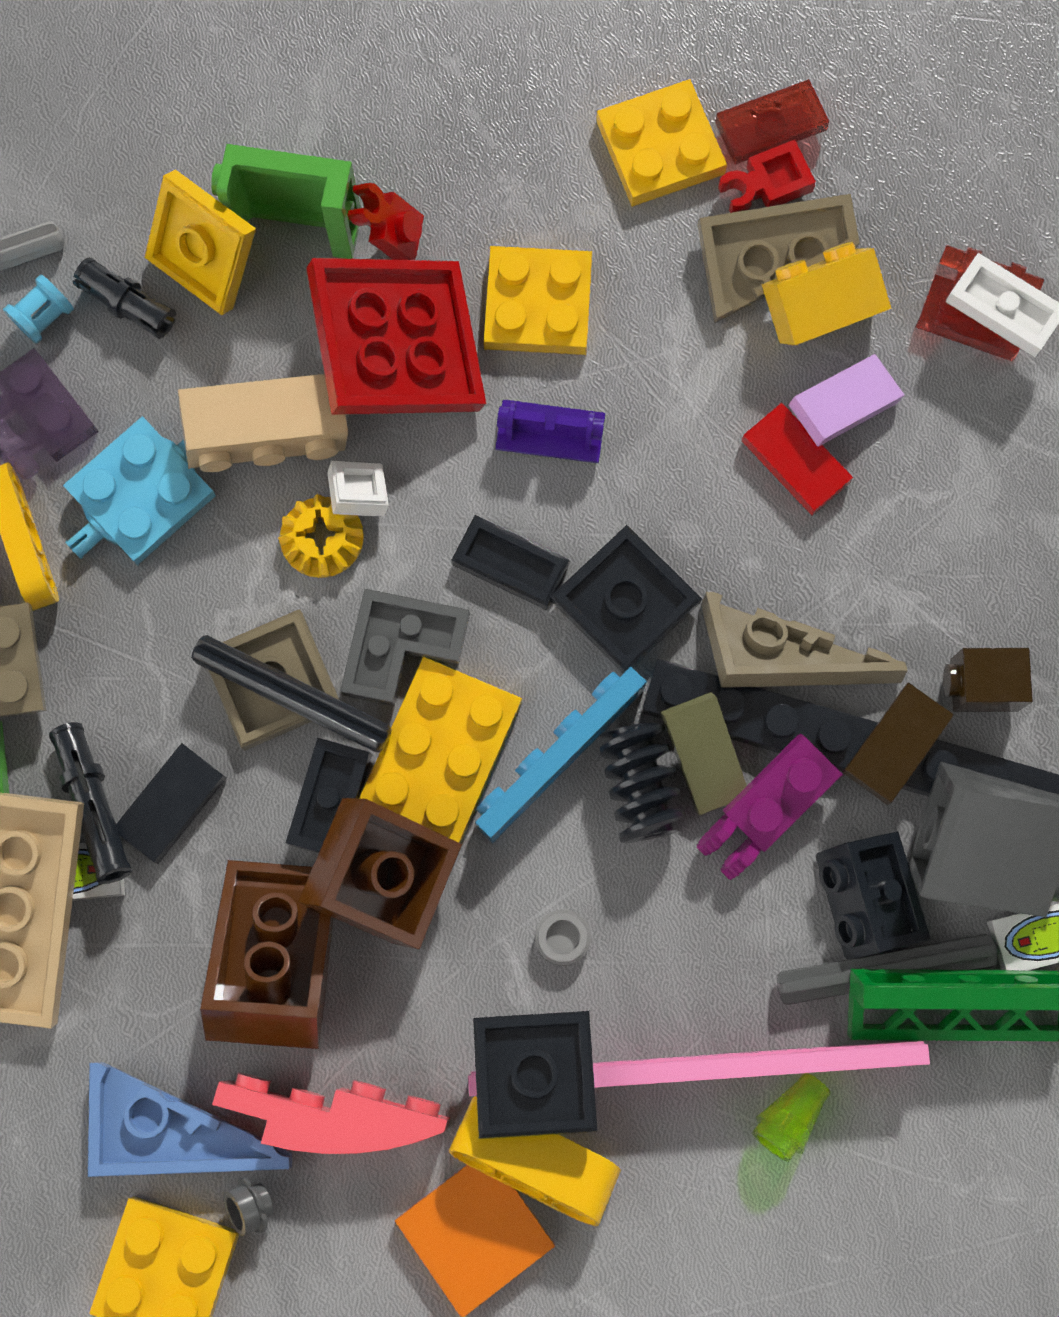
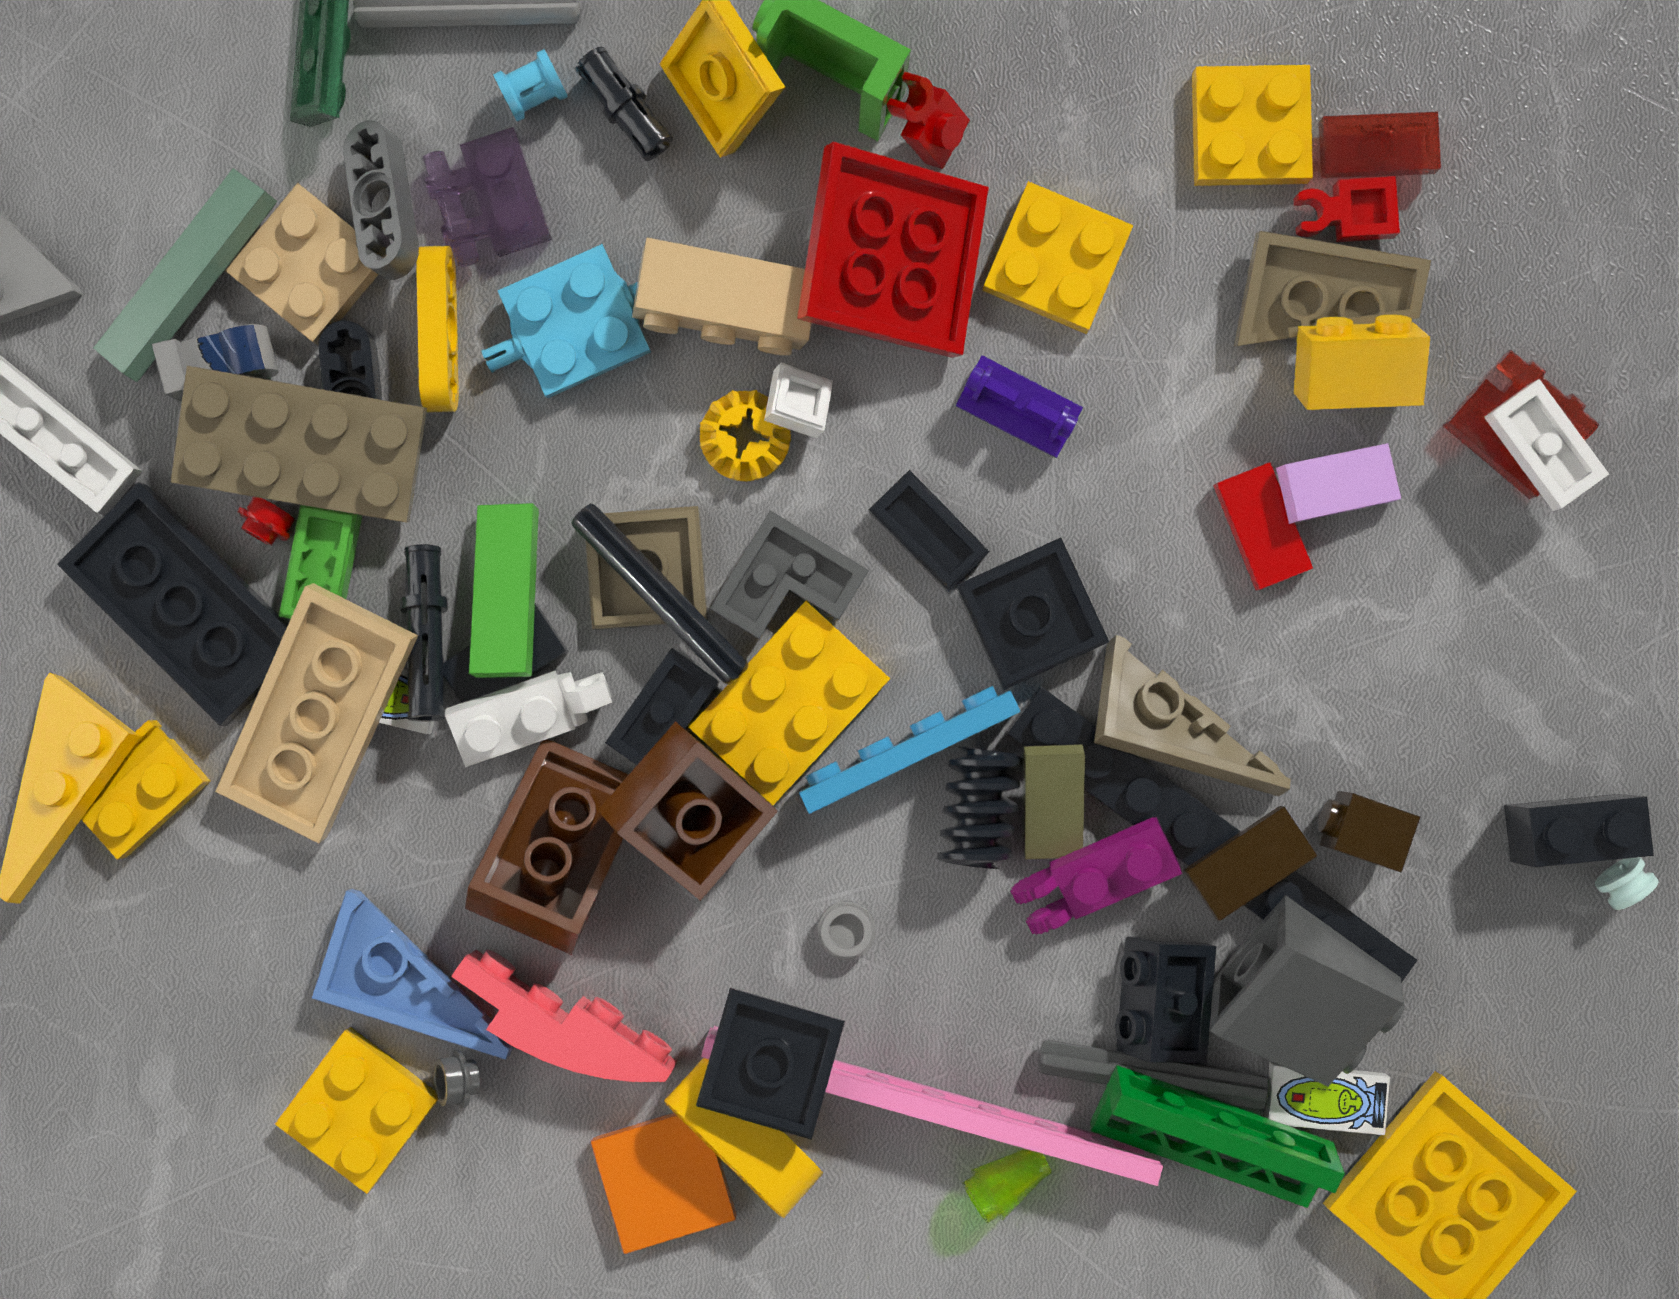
camera: 25 degrees right, 10 degrees up
(150, 741) = (504, 590): none -> bright green tile
(203, 845) = (524, 714): none -> white hinge

